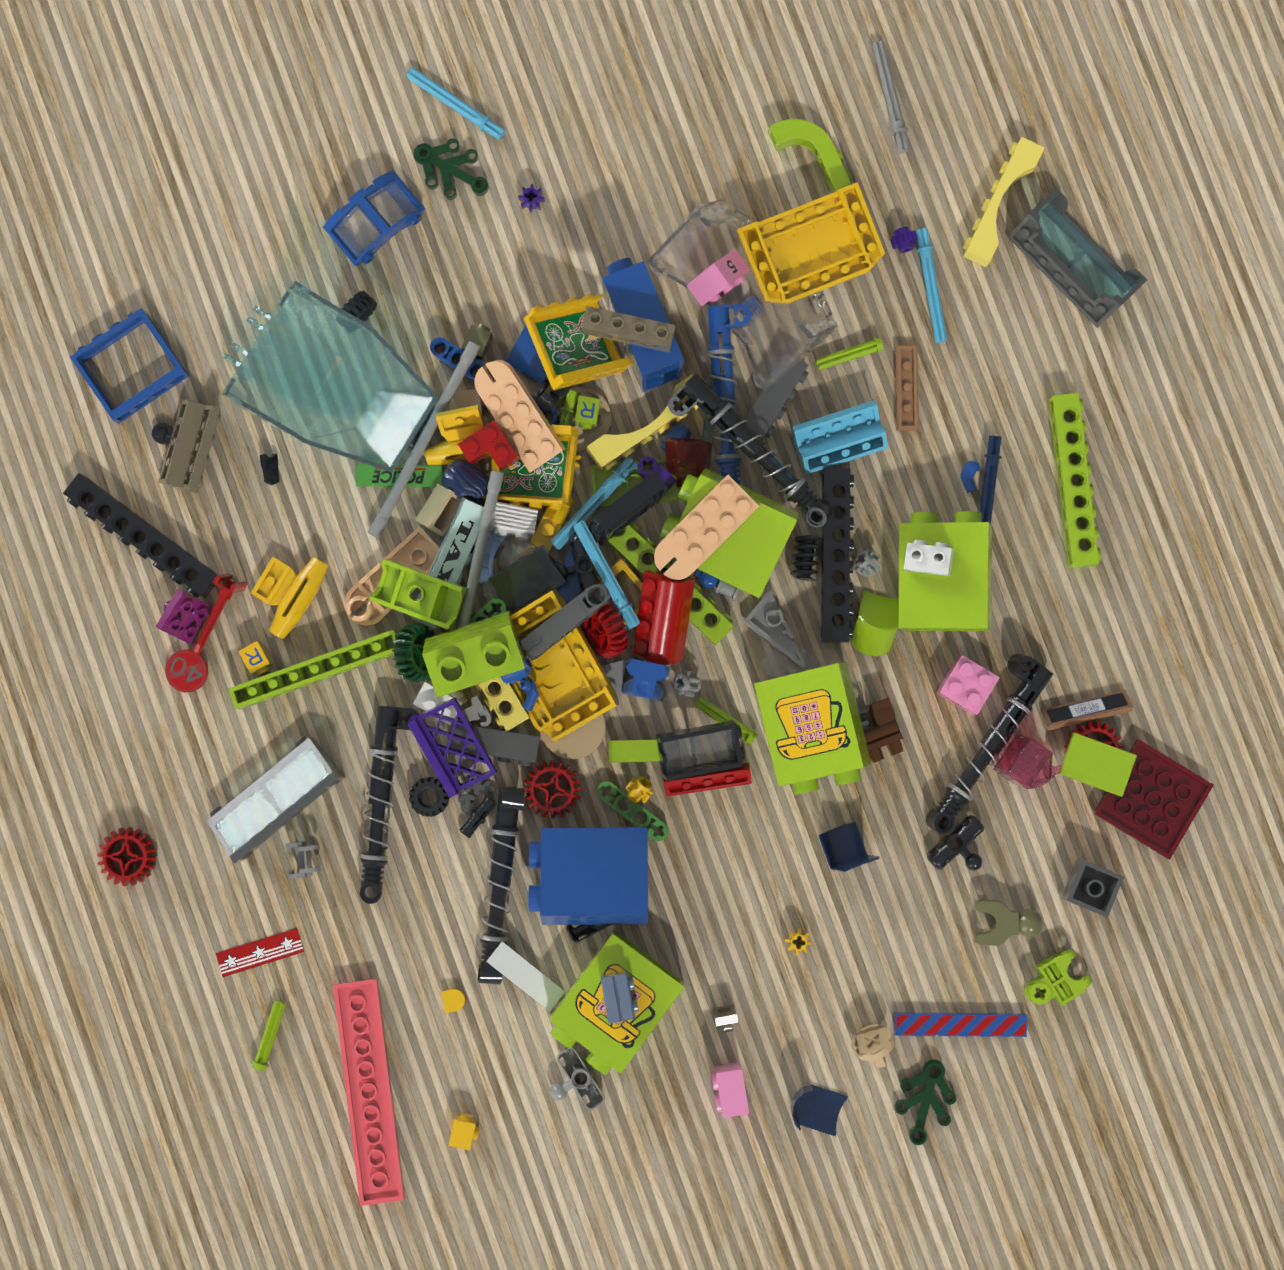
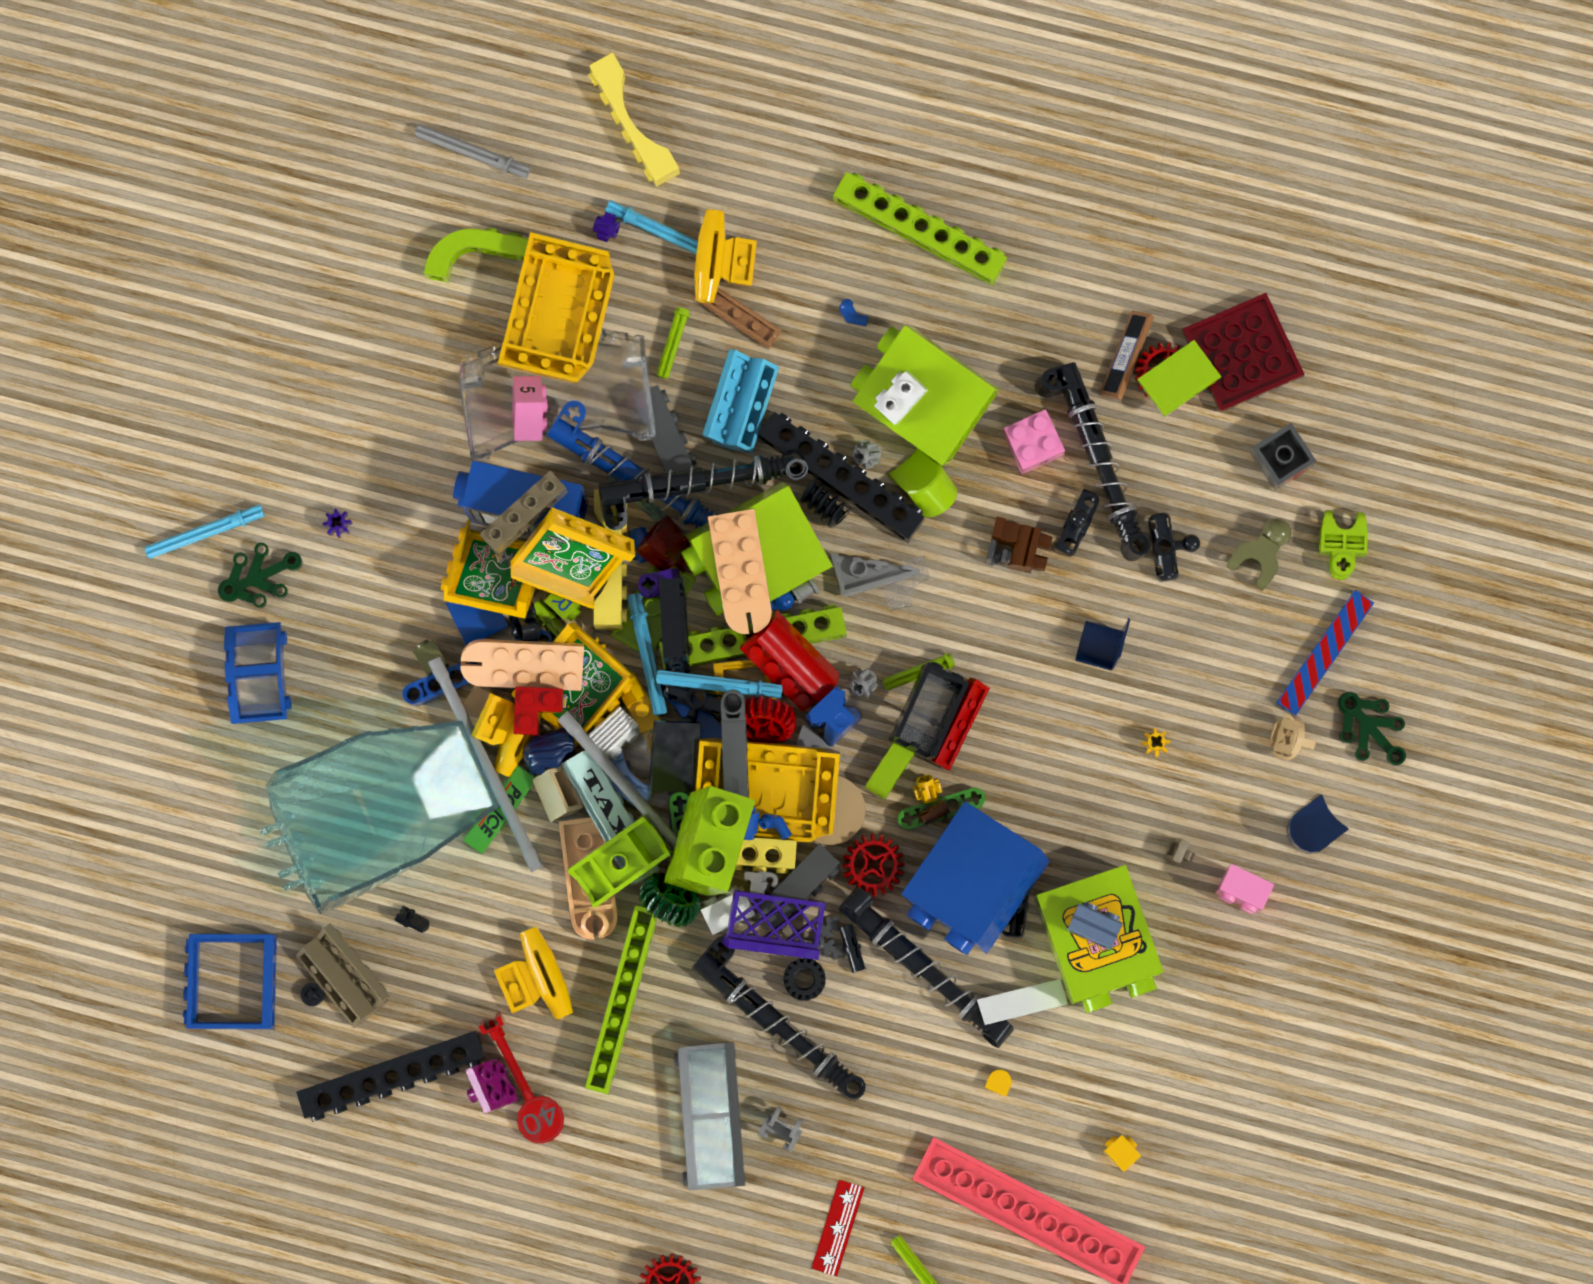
camera: 50 degrees left, 5 degrees down
(256, 658) = (574, 1048): yellow brick -> none
(360, 306) = (326, 736): black tyre -> none
(575, 1065) = (1143, 1042): light grey piece -> none
(622, 390) = (570, 557): none -> yellow panel
(624, 808) = (934, 812): none -> reddish brown pin
(755, 308) = (572, 395): clear tile -> none
(813, 727) = (977, 598): lime brick -> none
(927, 763) = (1077, 523): none -> black piece
(941, 344) = (721, 258): none -> yellow plate
(990, 476) = (866, 297): dark blue axle -> none
(1026, 763) = (1136, 438): clear pink piece -> none
(1074, 260) = (729, 94): windscreen -> none

